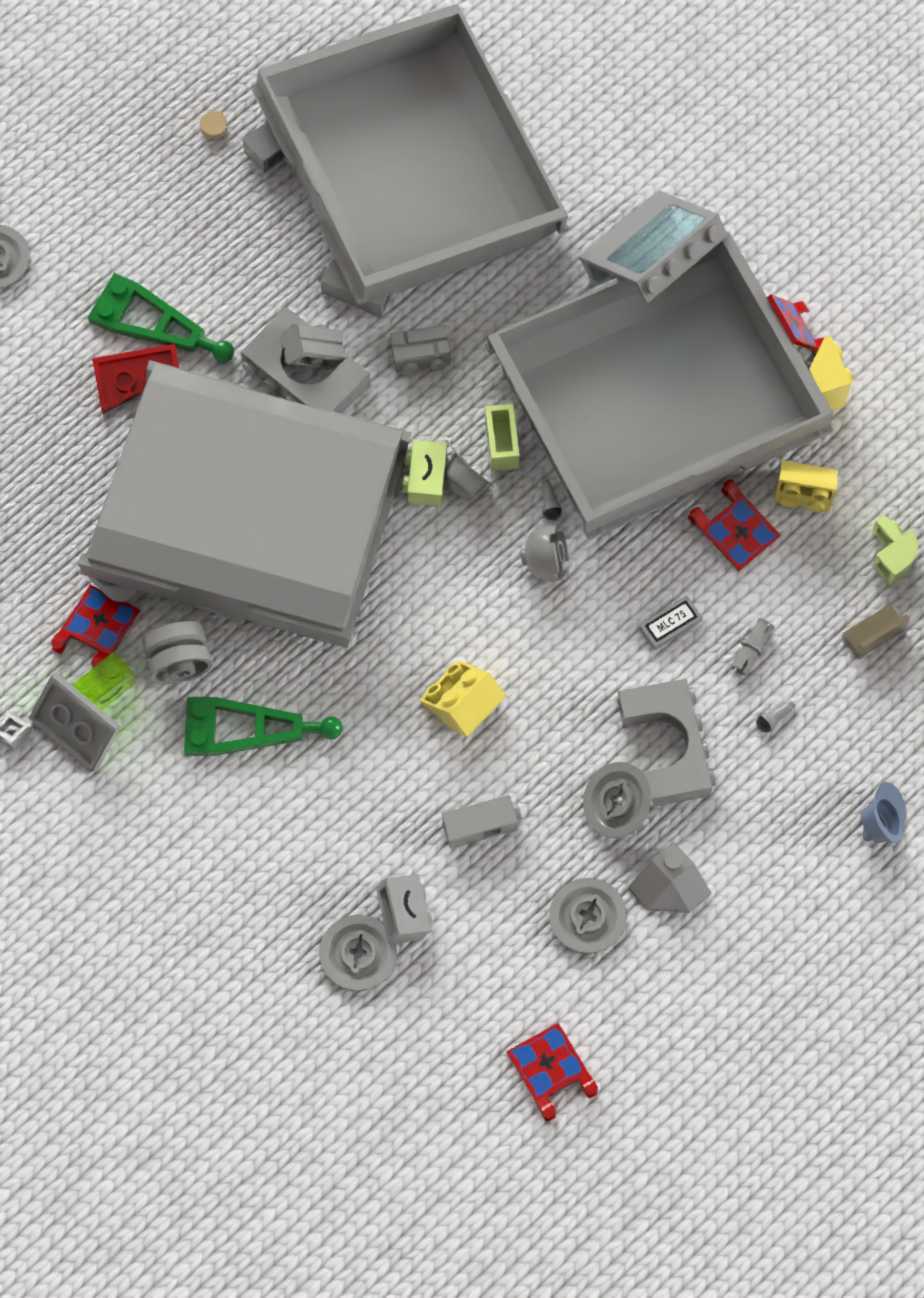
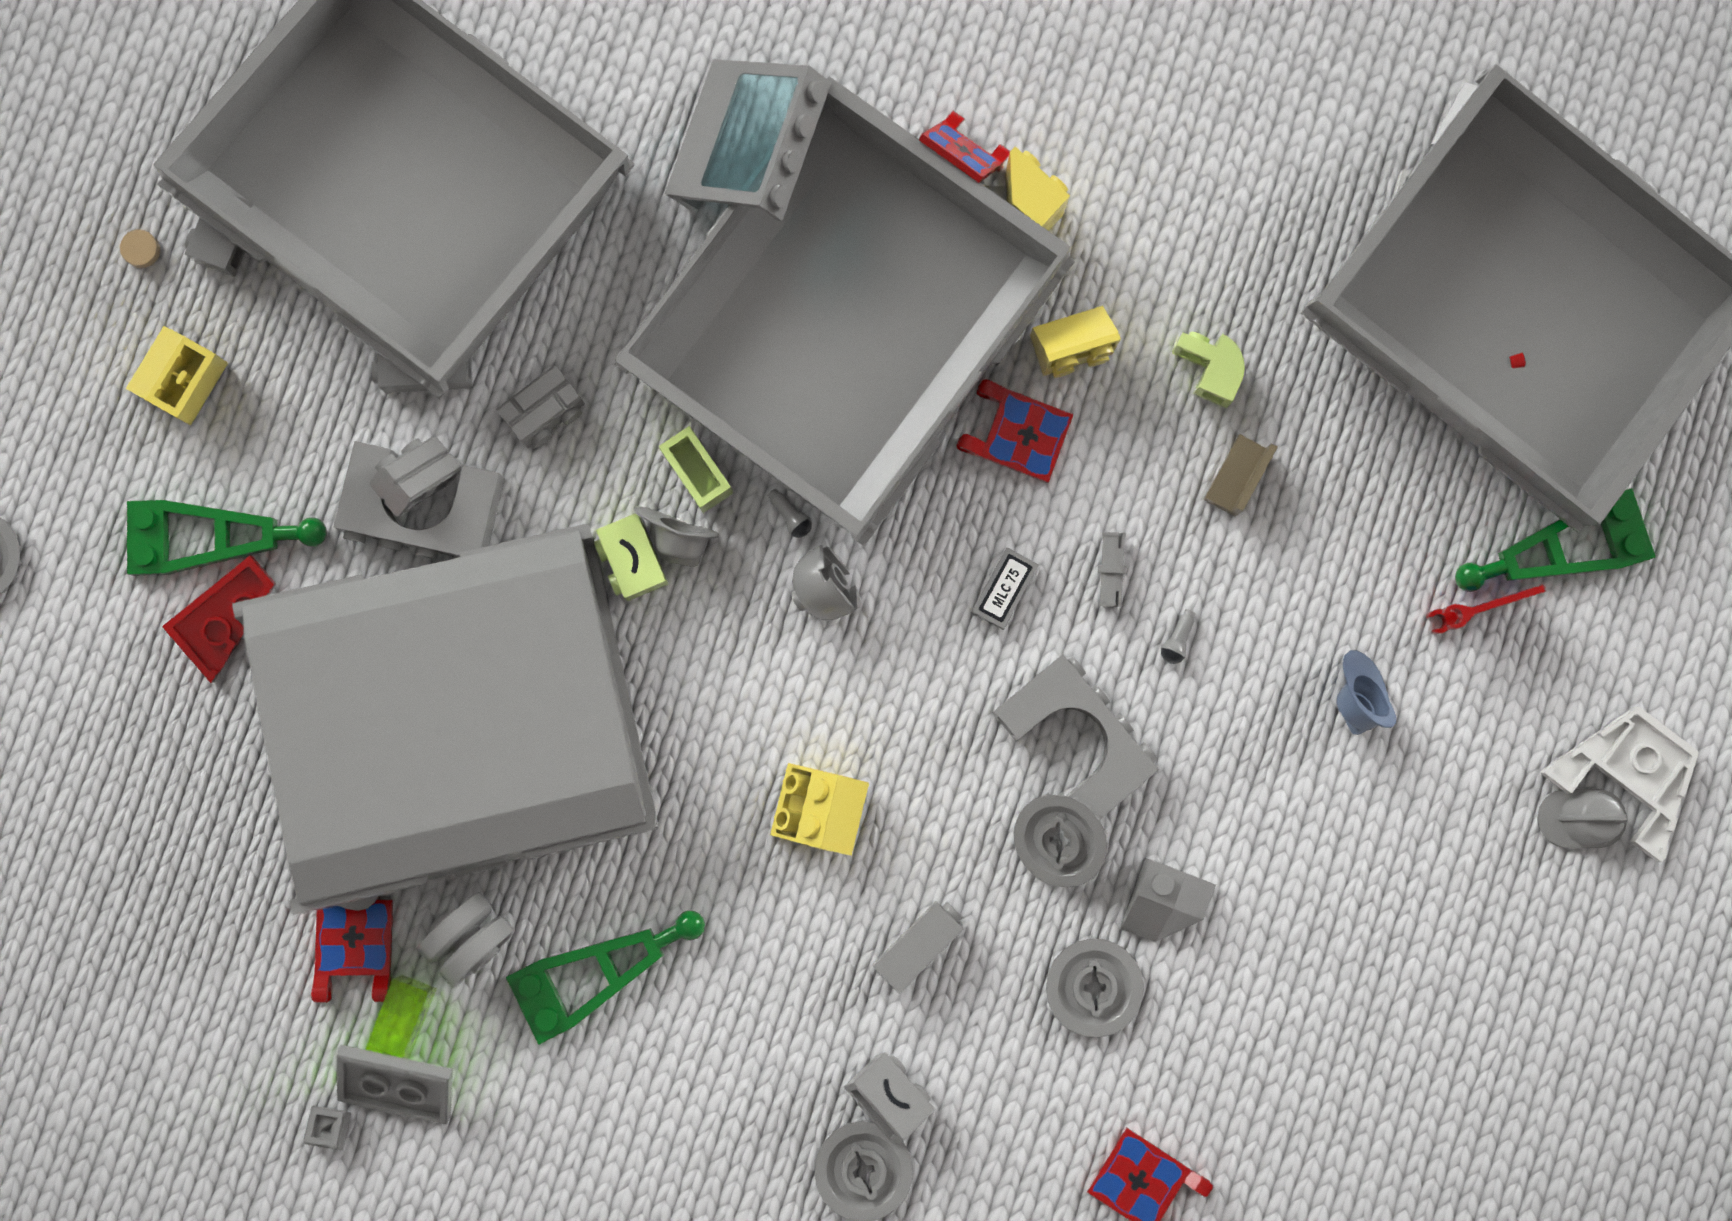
camera: 30 degrees left, 15 degrees up
(193, 212) = (177, 375): none -> light yellow slope

